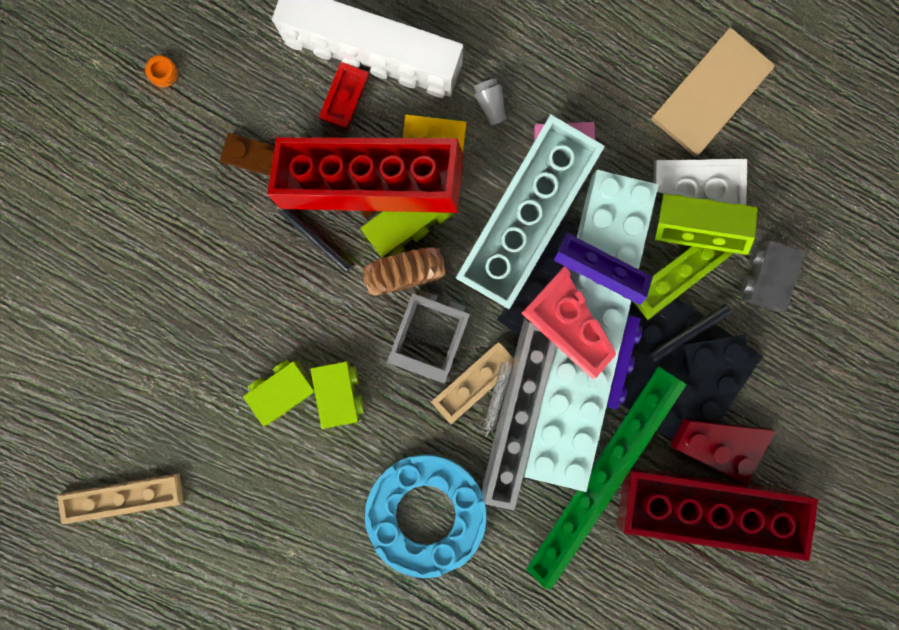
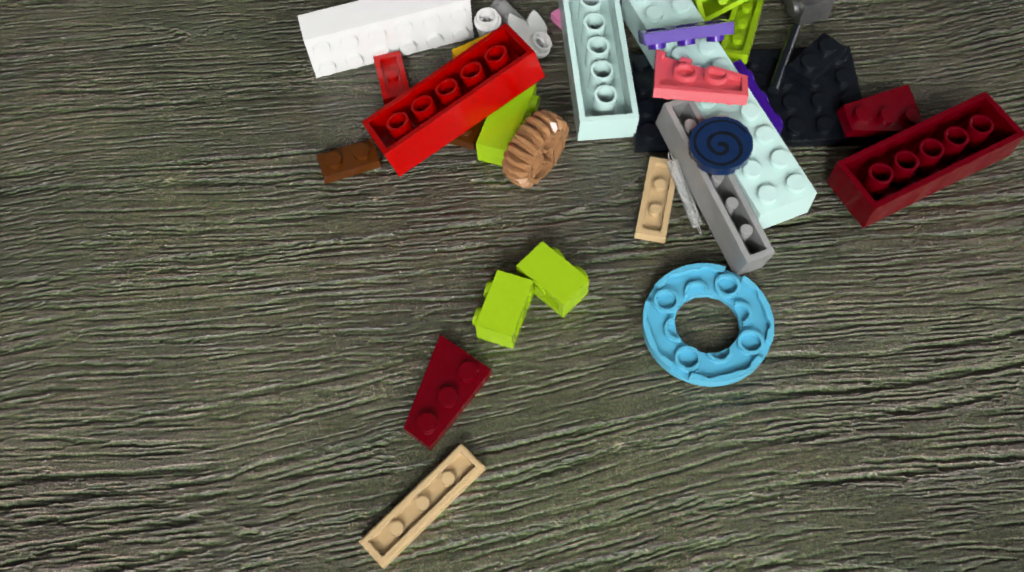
camera: 30 degrees left, 25 degrees down
(161, 71) = (230, 150): orange tile -> none
(194, 423) = (444, 393): none -> dark red wing
(317, 239) = (445, 184): black bar -> none
(417, 366) = (601, 213): light grey window -> none
(461, 98) = (487, 21): none -> white cone
(493, 134) = (533, 32): none -> white plate
(540, 399) = (720, 145): none -> dark blue tile
(605, 477) = (826, 211): green plate -> none

